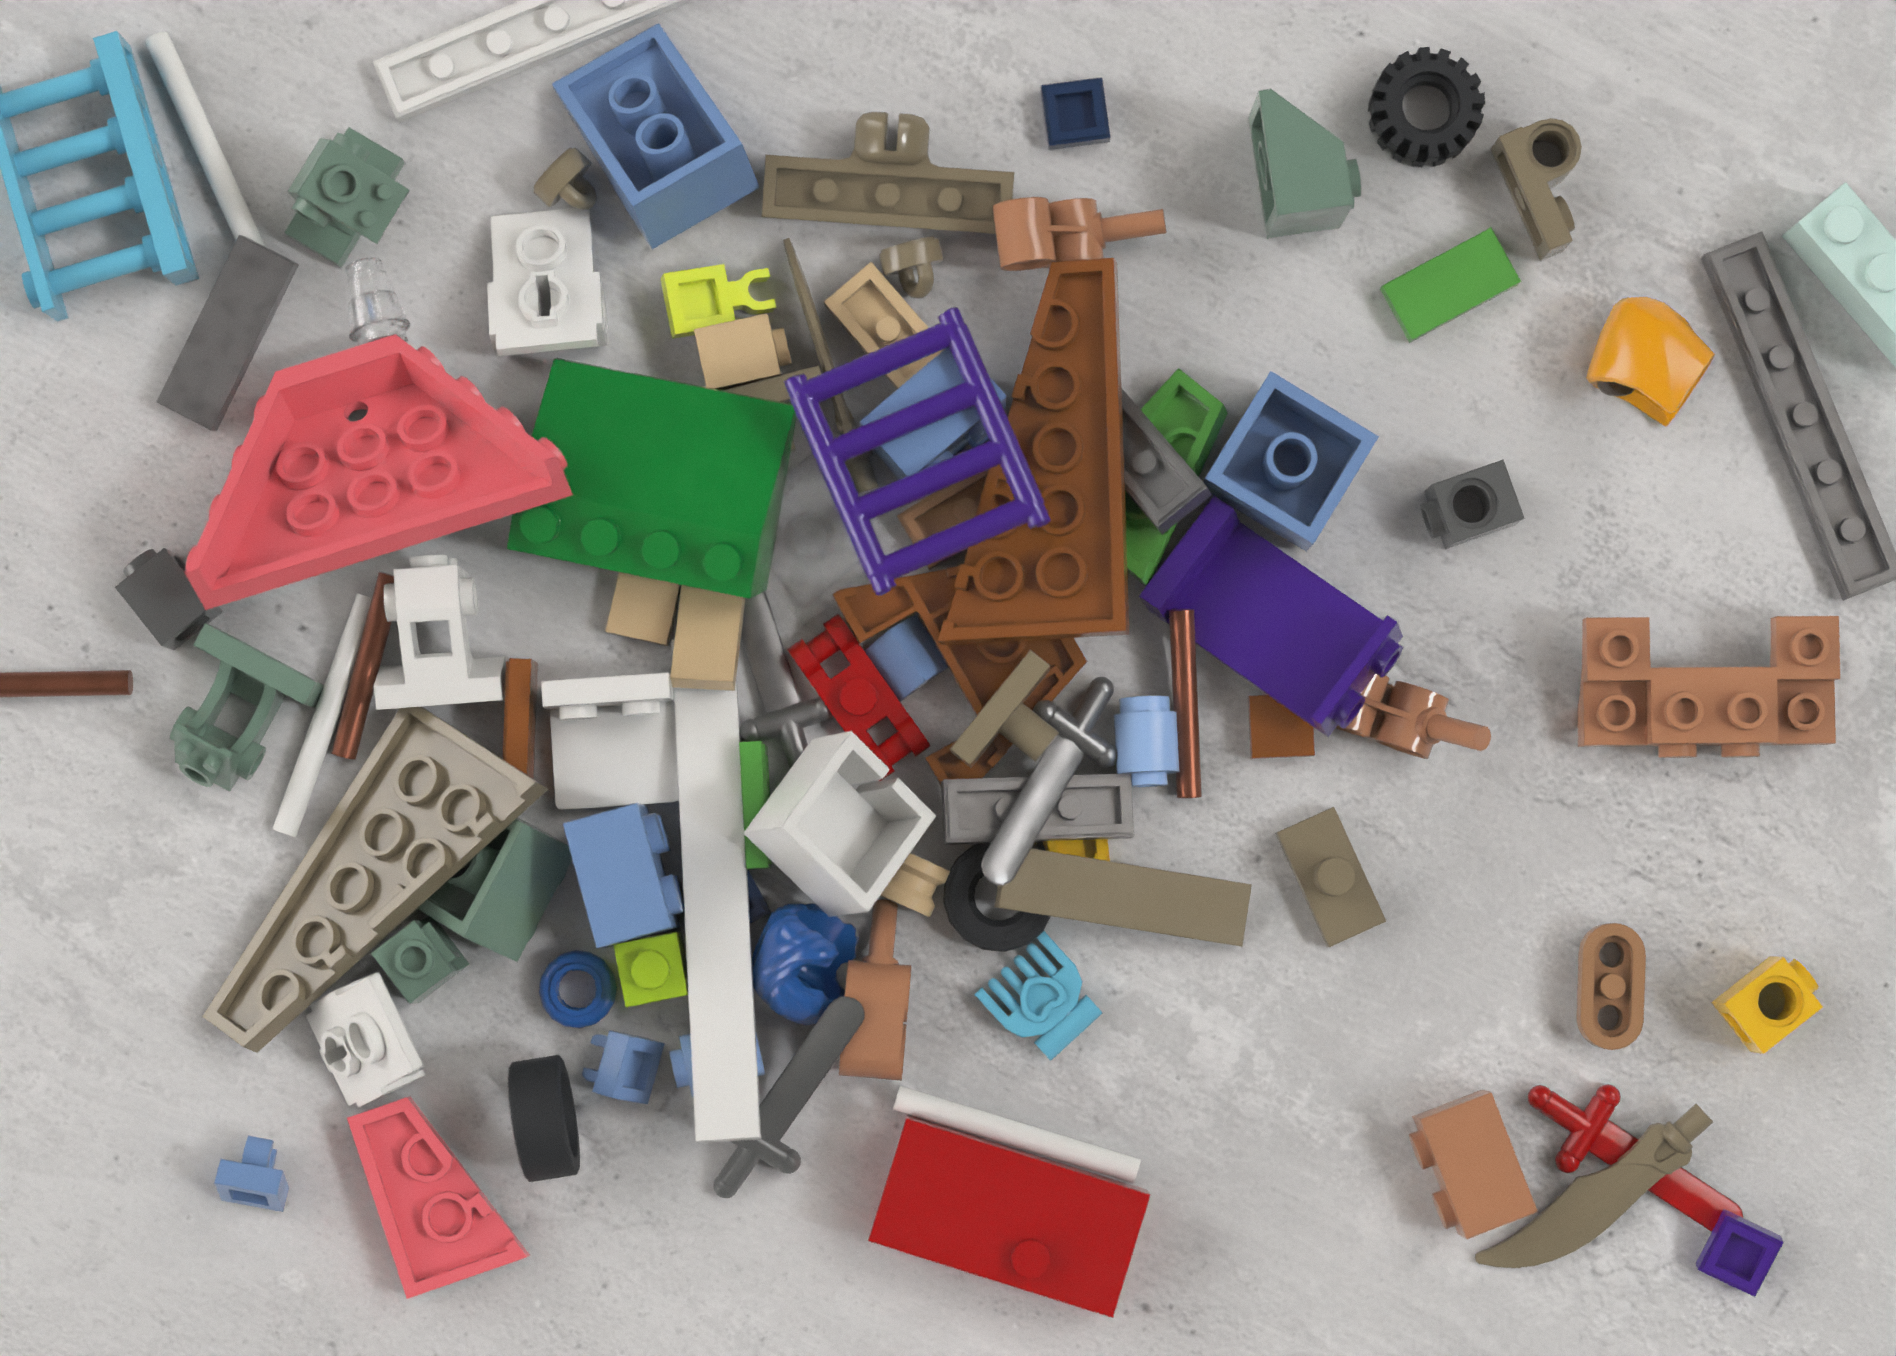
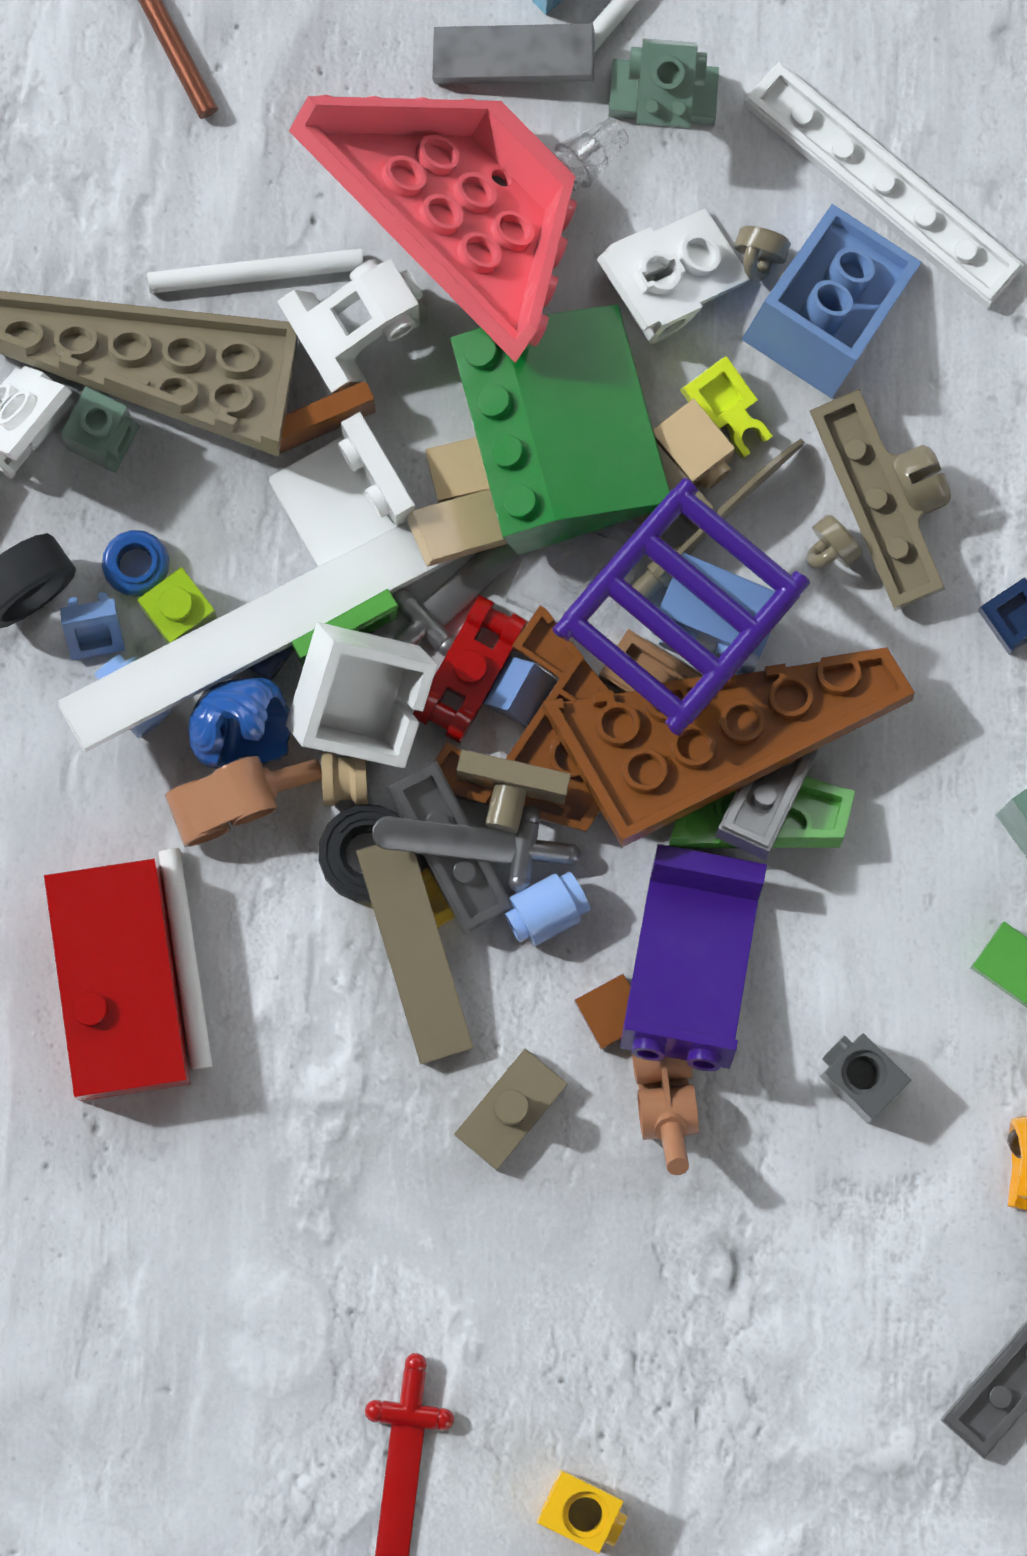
camera: 60 degrees right, 5 degrees down
(164, 597) = (280, 103): dark grey brick -> none
(212, 754) = (184, 191): sand green tile -> none
(364, 674) = (306, 281): copper bar -> none
(503, 889) = (185, 464): sand green slope -> none
(624, 874) = (241, 548): medium blue brick -> none
(791, 1094) = (129, 763): dark grey sword -> none
(877, 317) = (778, 532): tan plate -> none
(1040, 232) = (904, 626): nougat beam -> none
(1046, 1004) = (299, 931): medium azure piece -> none
(1185, 701) = (592, 925): copper bar -> none
(1289, 461) = (824, 911): medium blue brick -> none
(1472, 1164) = (334, 1332): nougat brick -> none
(1600, 1197) = (358, 1452): dark tan sword -> none
(1616, 986) = (532, 1376): medium nougat plate -> none
(1708, 706) = (798, 1346): nougat bracket -> none

